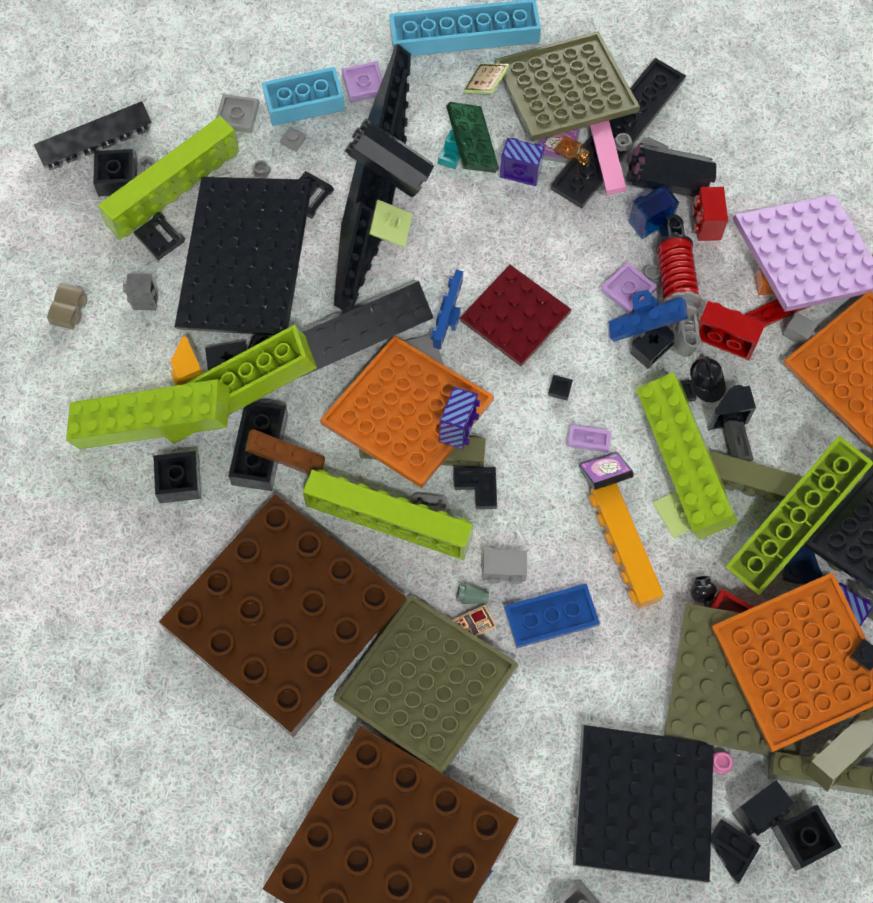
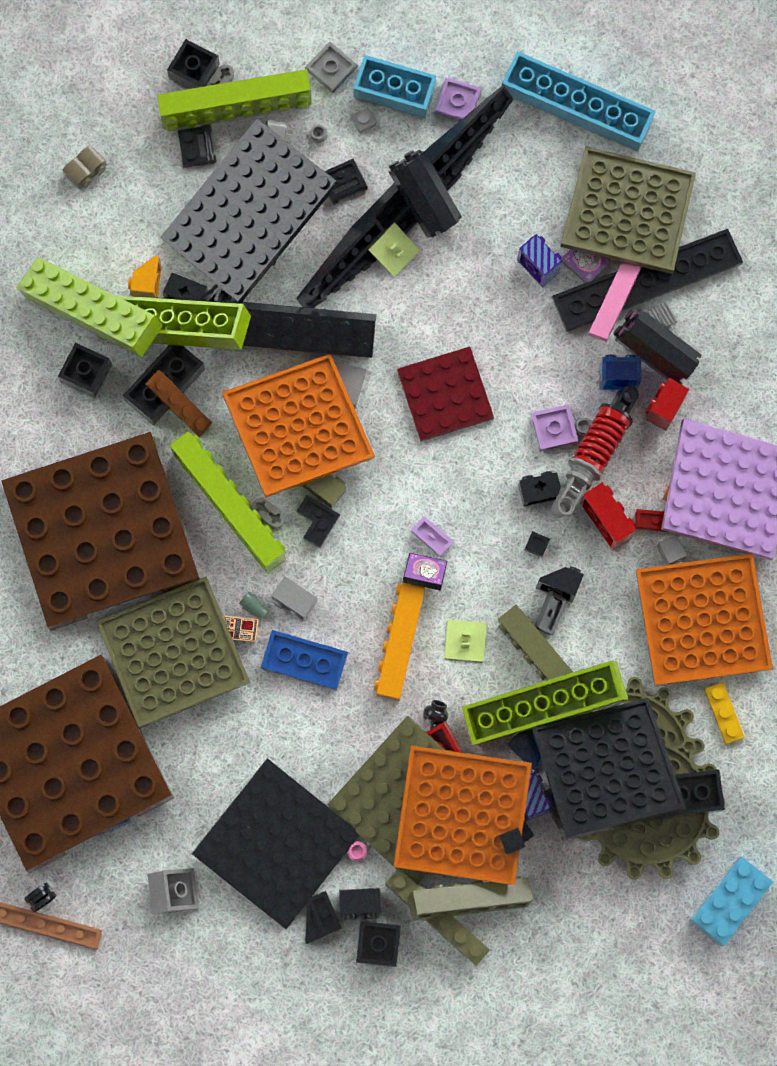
camera: 30 degrees right, 10 degrees up
(93, 135) = (193, 22): black brick -> none
(141, 291) = (149, 191): flat silver brick -> none
(448, 313) = (386, 361): blue plate -> none
(450, 155) = (493, 211): teal slope -> none
(458, 418) = (327, 459): dark purple container -> none
(472, 137) = (514, 210): clear green plate -> none
(486, 78) = (565, 161): piece -> none
(560, 387) = (438, 479): black plate -> none
(570, 148) = (590, 273): clear orange plate -> none
(623, 138) = (639, 289): light grey plate -> none
(648, 316) = (548, 463): blue plate -> none
(687, 456) = (494, 599): lime brick -> none
(708, 379) = (565, 546): black piece -> none

